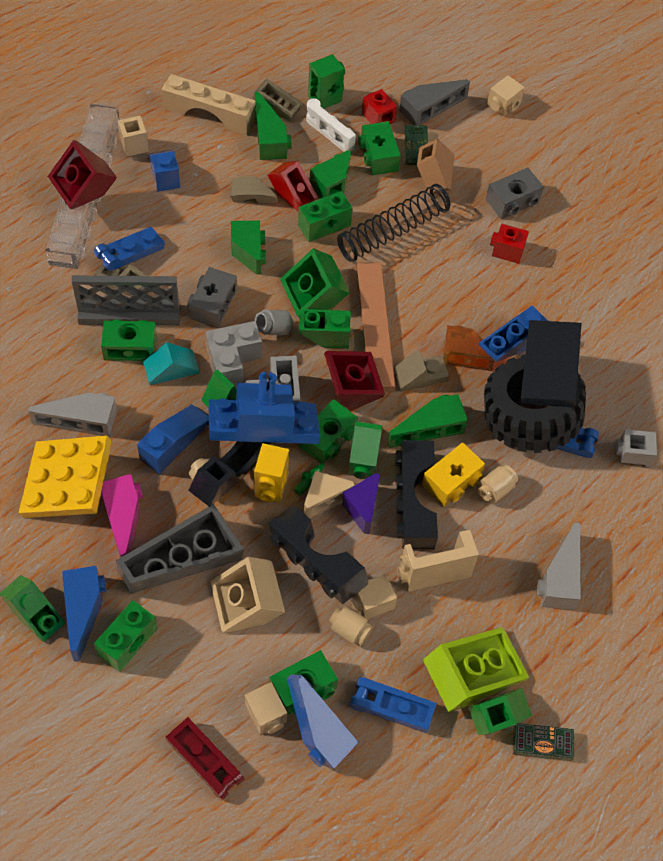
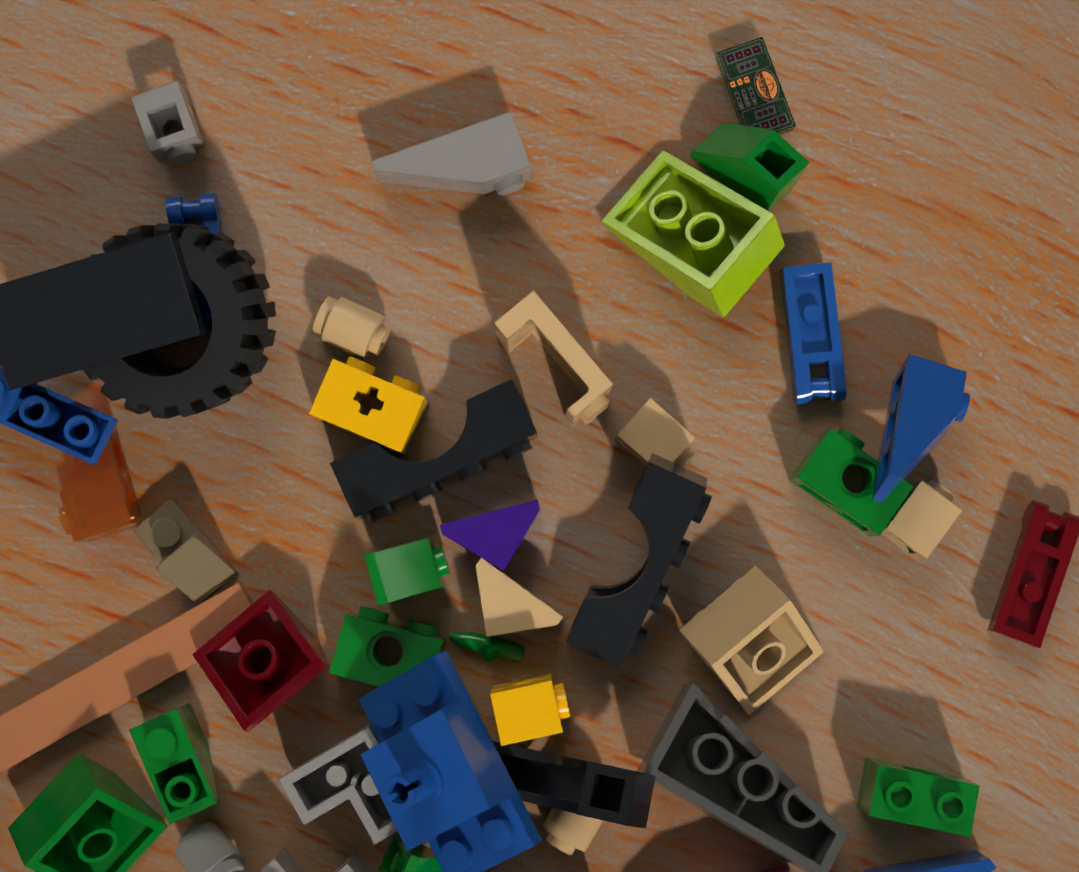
camera: 110 degrees left, 25 degrees up
(350, 625) = (721, 453): tan brick -> none
(435, 420) = (272, 479): green slope -> none

